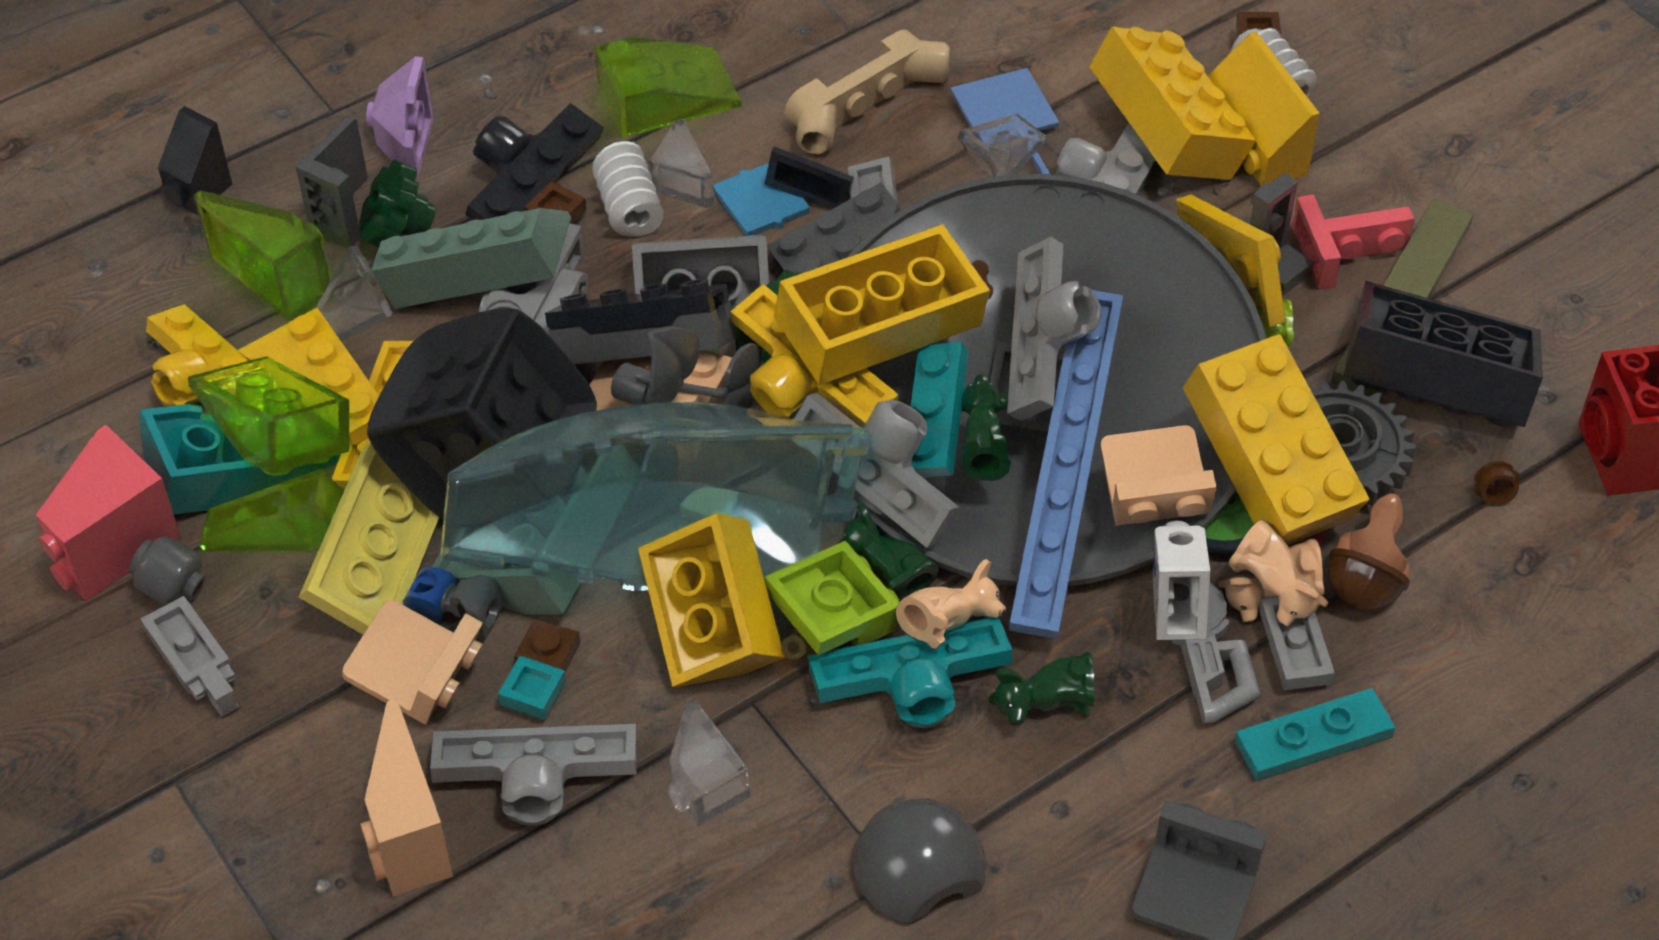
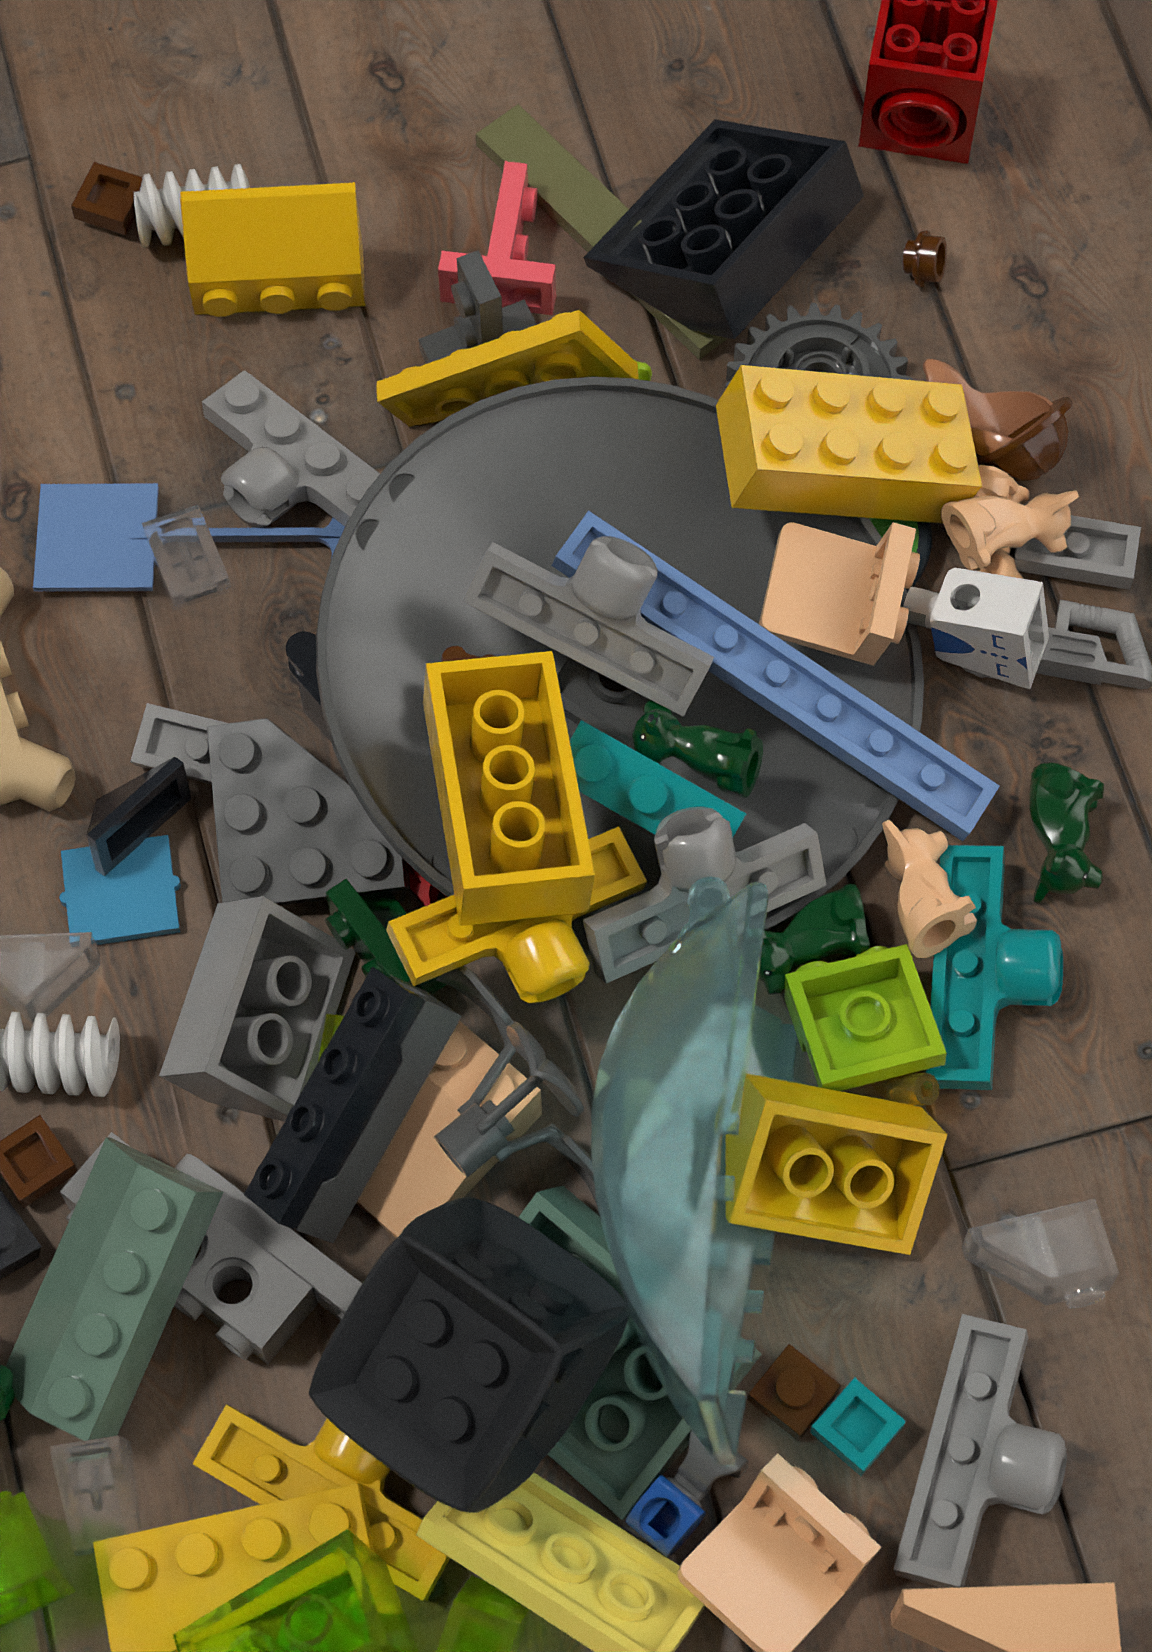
camera: 70 degrees left, 15 degrees up
(1172, 103) = (214, 340): yellow brick -> none

